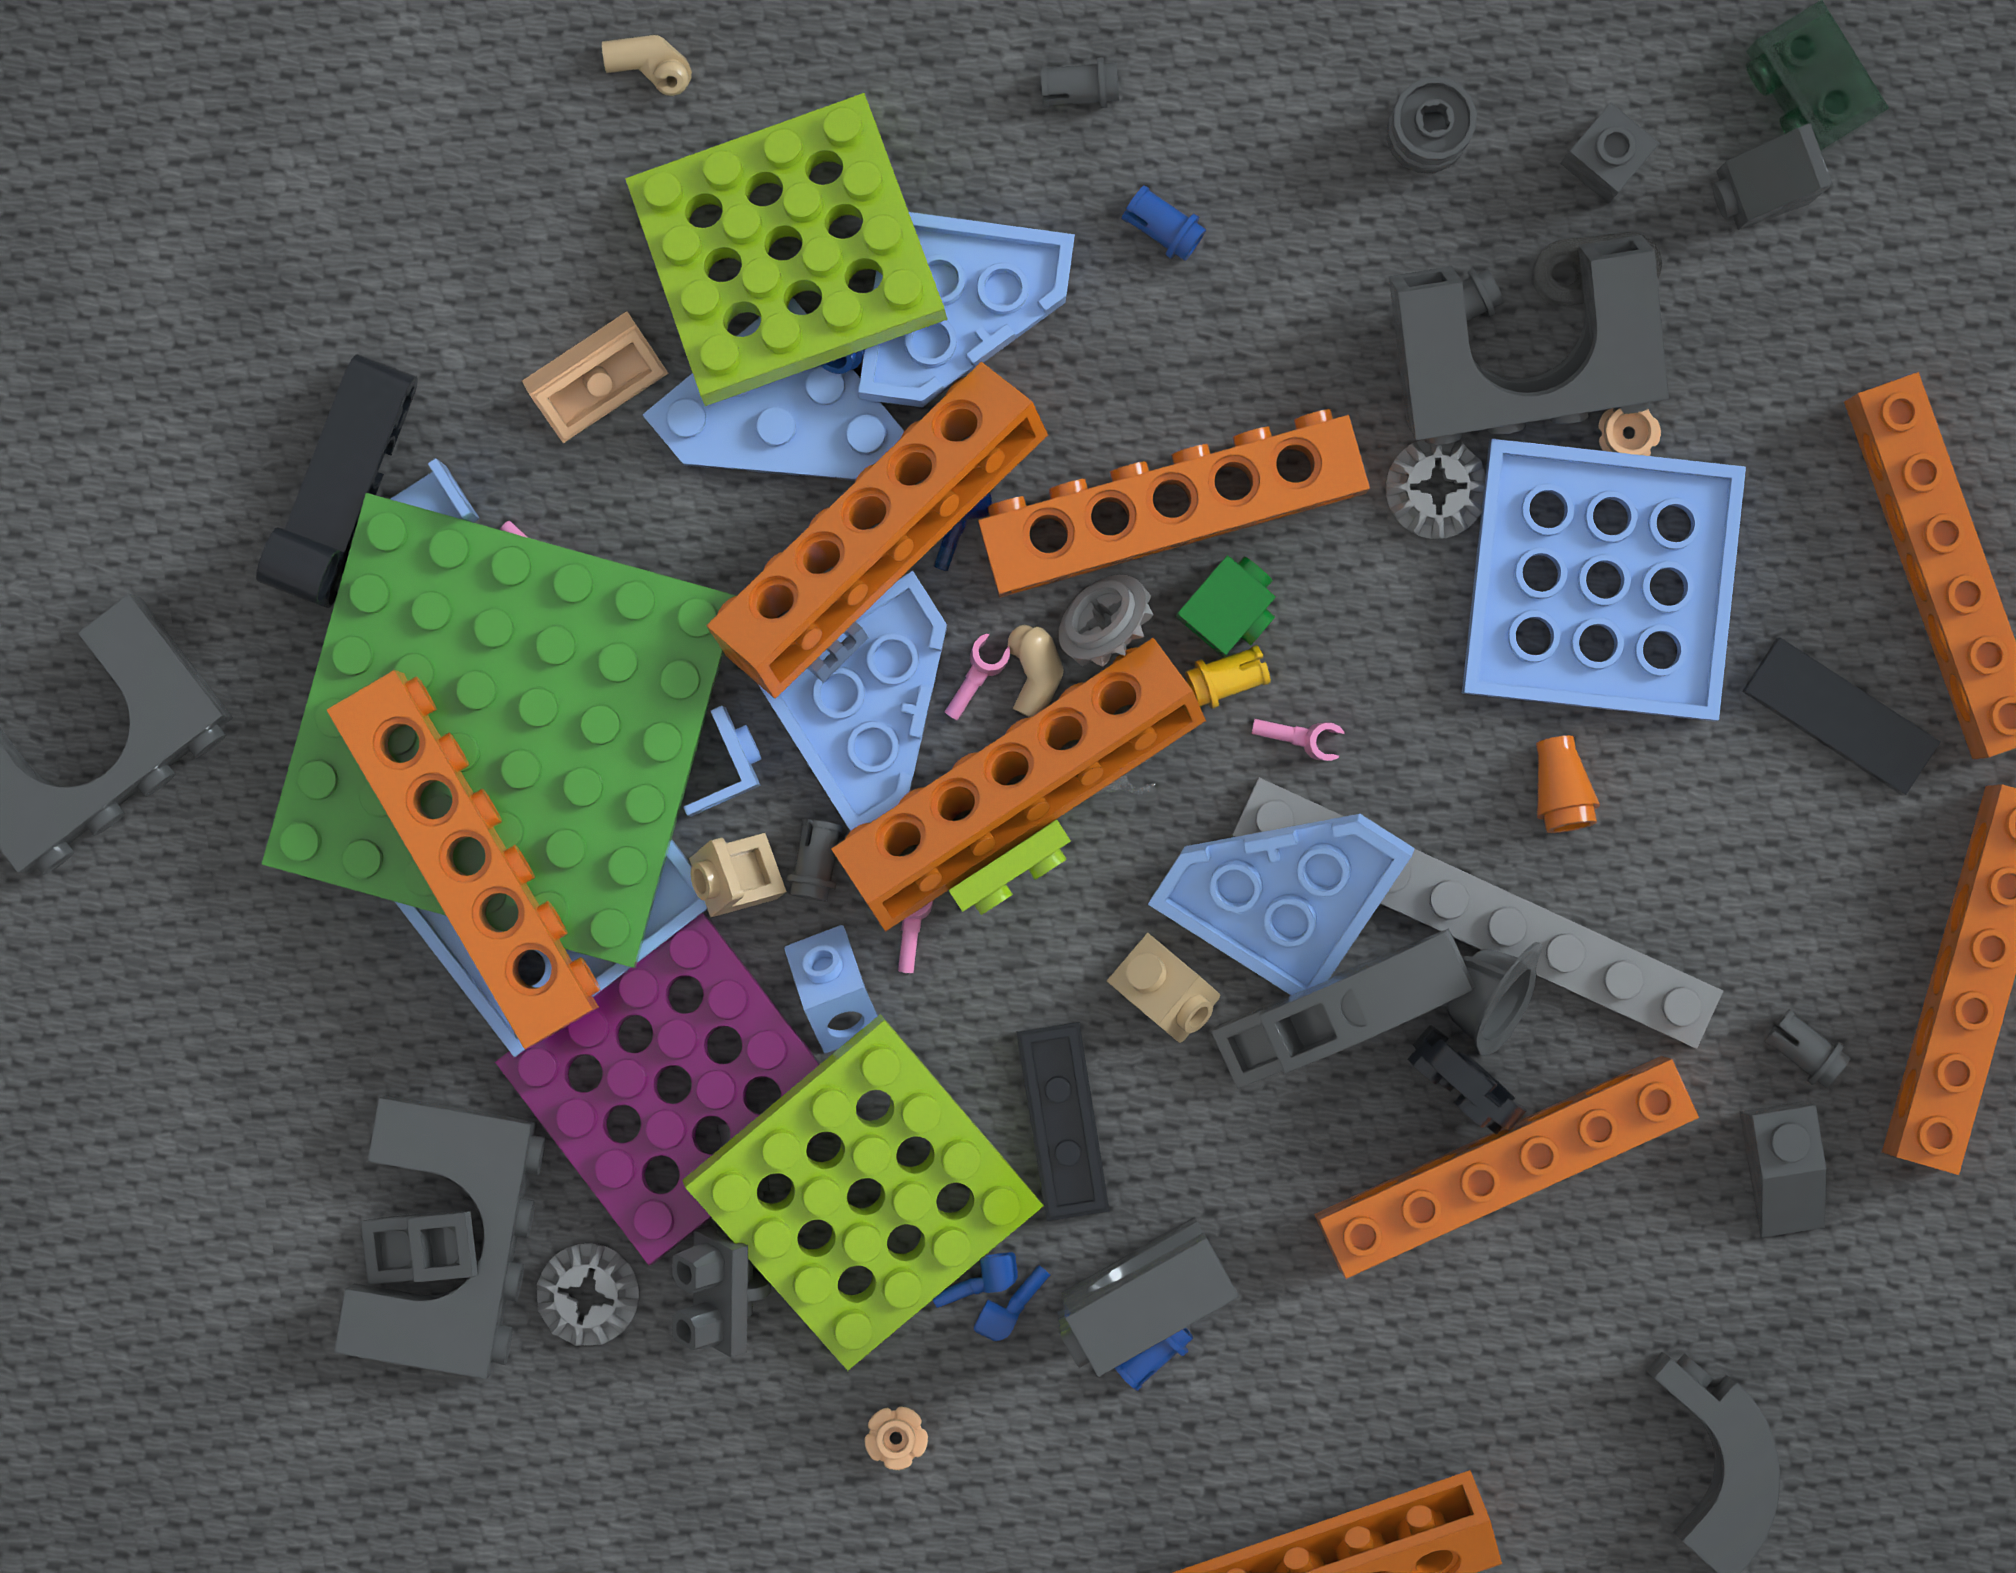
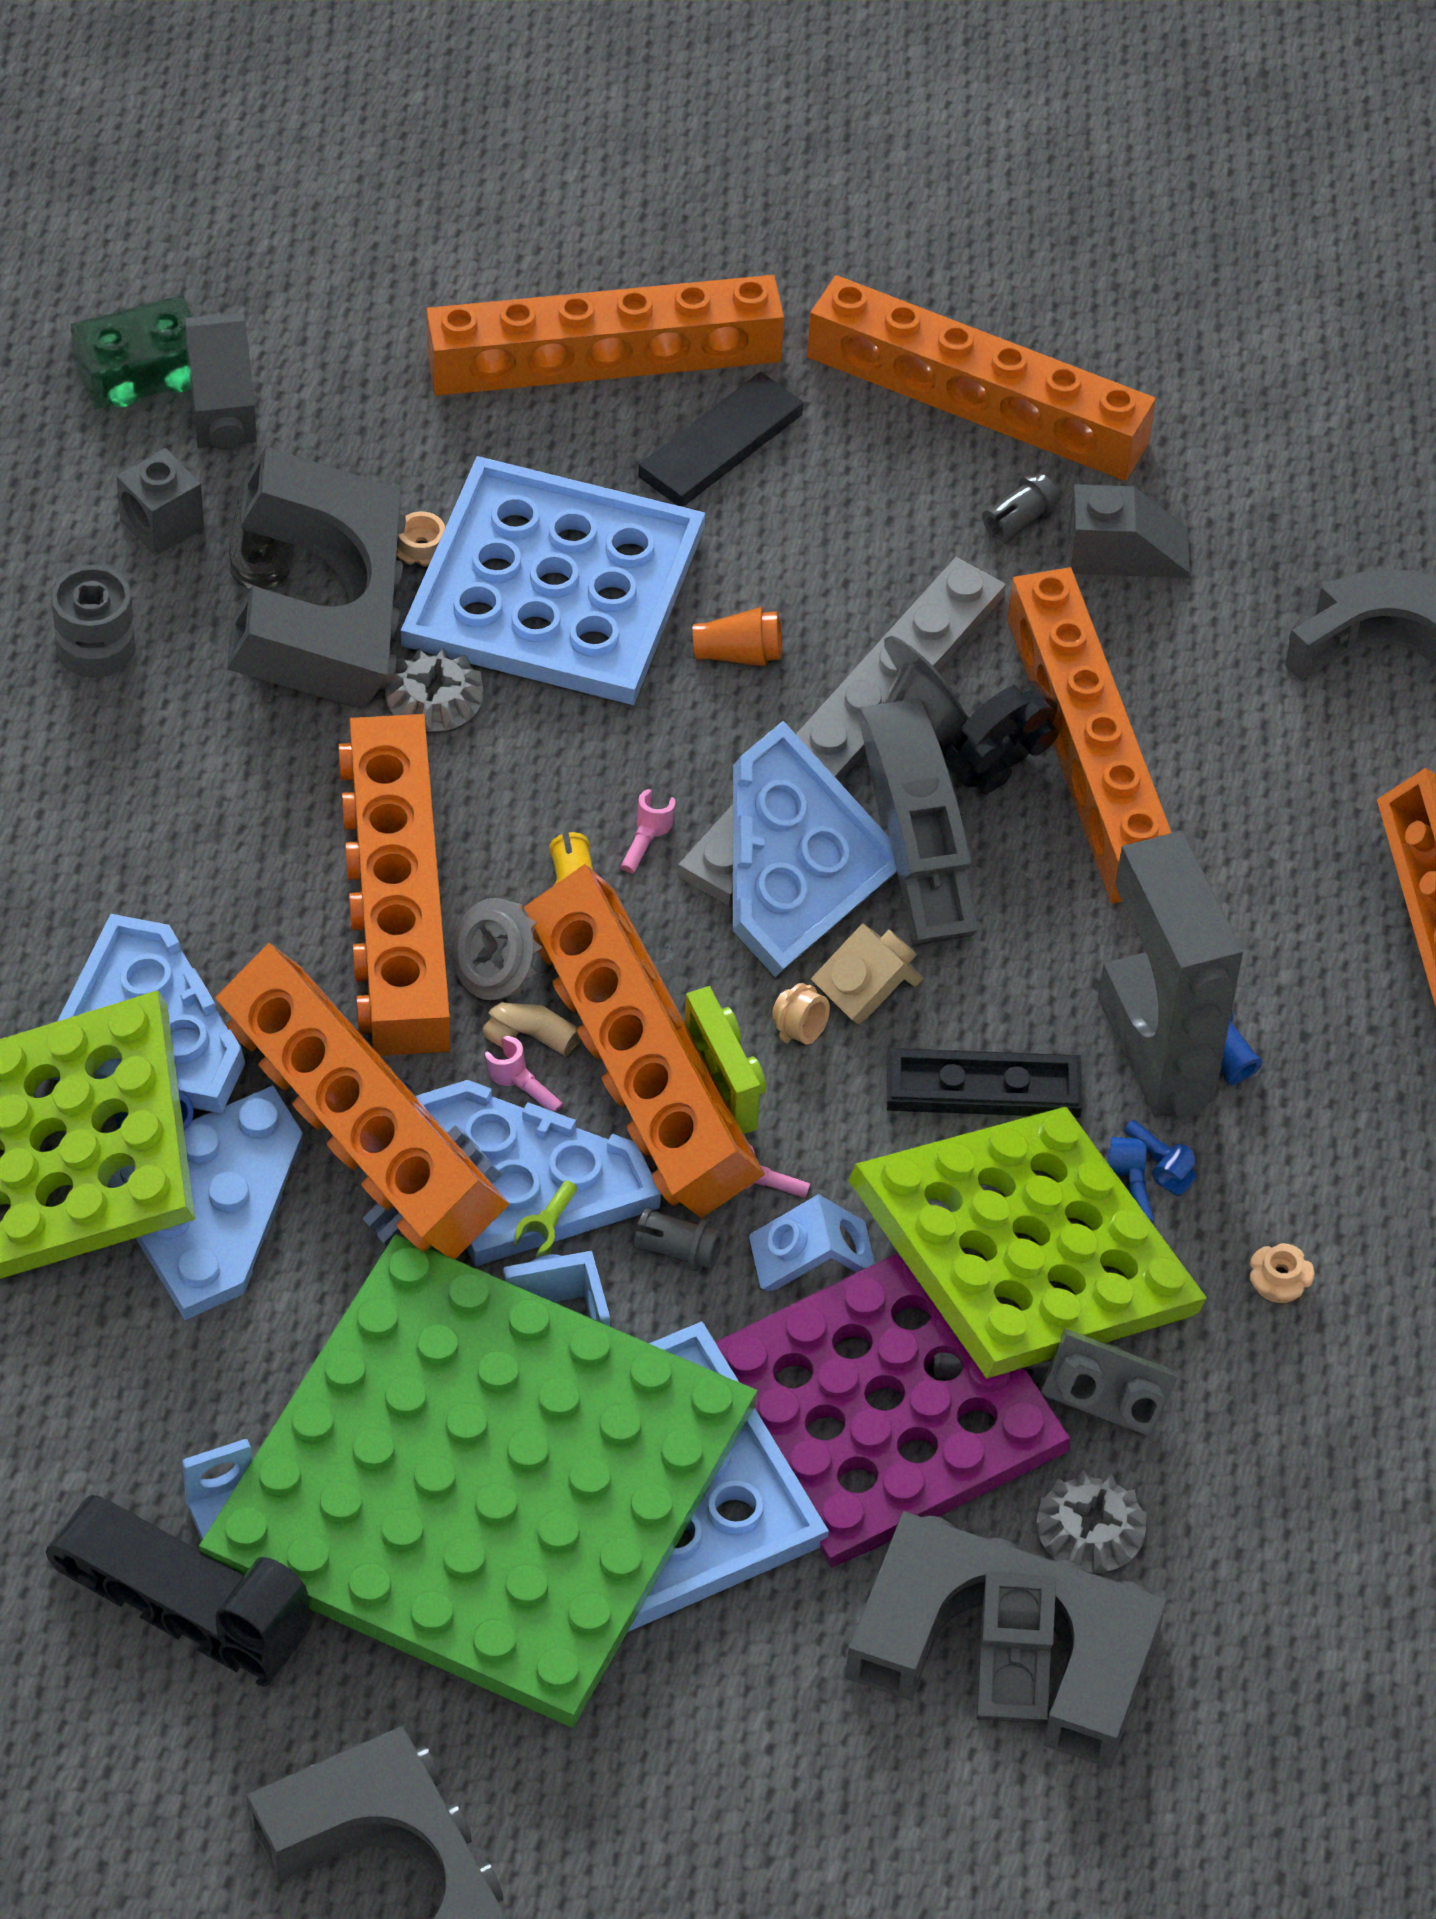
camera: 85 degrees left, 35 degrees down
(365, 725) = (590, 1520): orange brick -> none
(594, 377) = (129, 1351): light nougat slope -> none
(736, 874) = (679, 1299): tan bracket -> none
(790, 733) = (547, 1219): none -> lime hand
(1101, 929) = (799, 1008): none -> light nougat plate
(1164, 223) = (122, 848): blue pin -> none
(1230, 605) = (507, 855): green brick -> none

